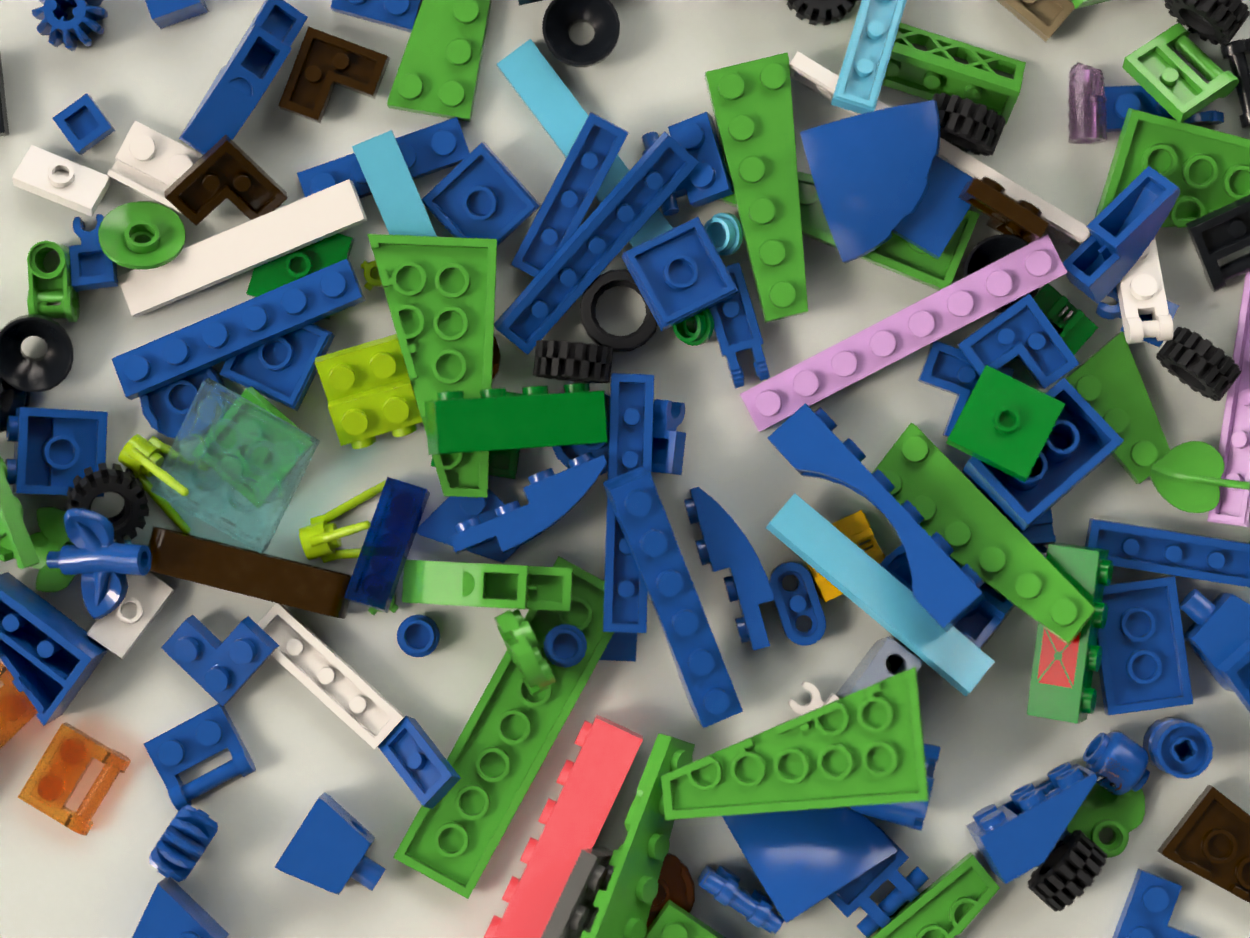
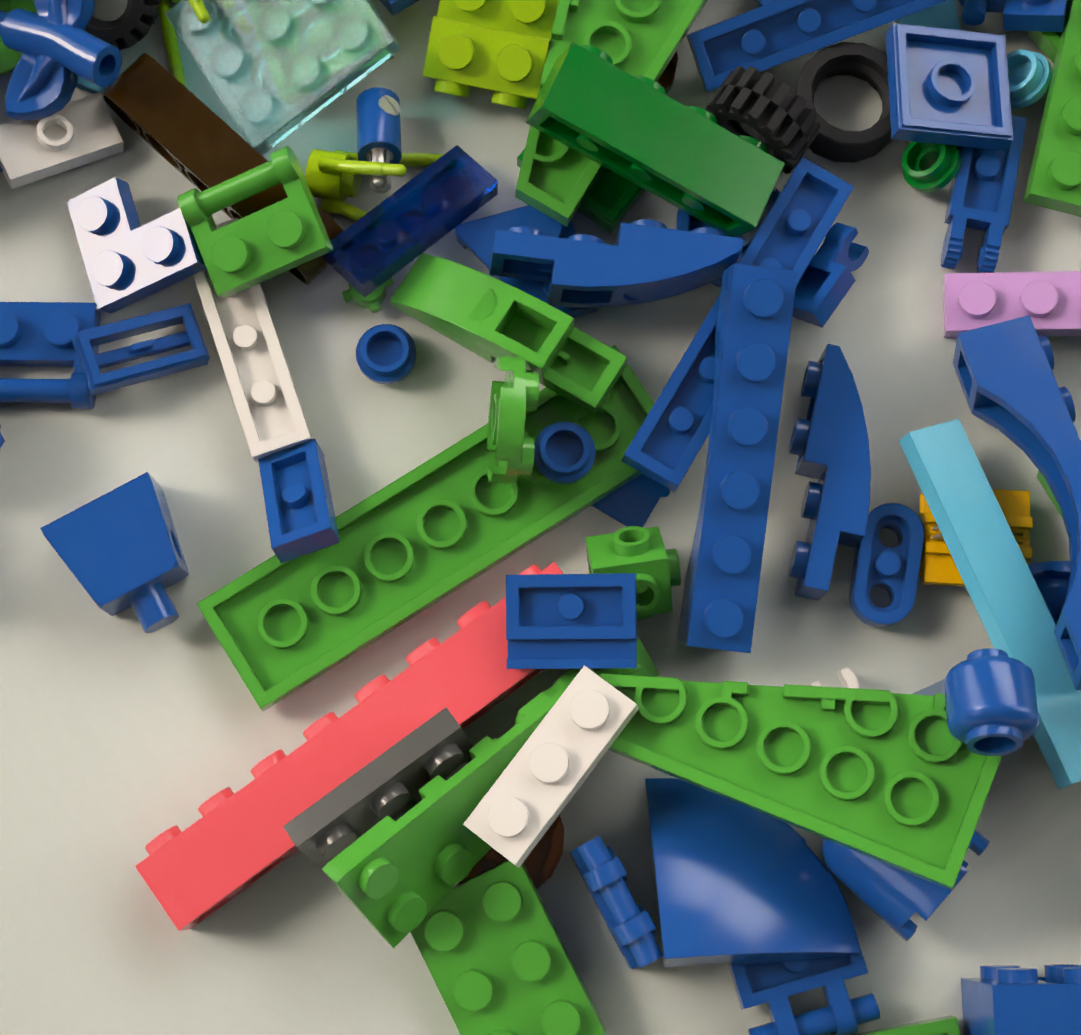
camera: 25 degrees right, 10 degrees down
(241, 746) = (90, 363): none -> blue tile
(307, 613) = (263, 241): none -> bright green plate
(334, 497) = (379, 131): none -> blue piece
(627, 753) = (571, 621): none -> blue plate
(645, 697) = (638, 552): none -> bright green brick
(662, 848) = (551, 766): none -> white plate
(896, 685) = (991, 702): none -> blue head

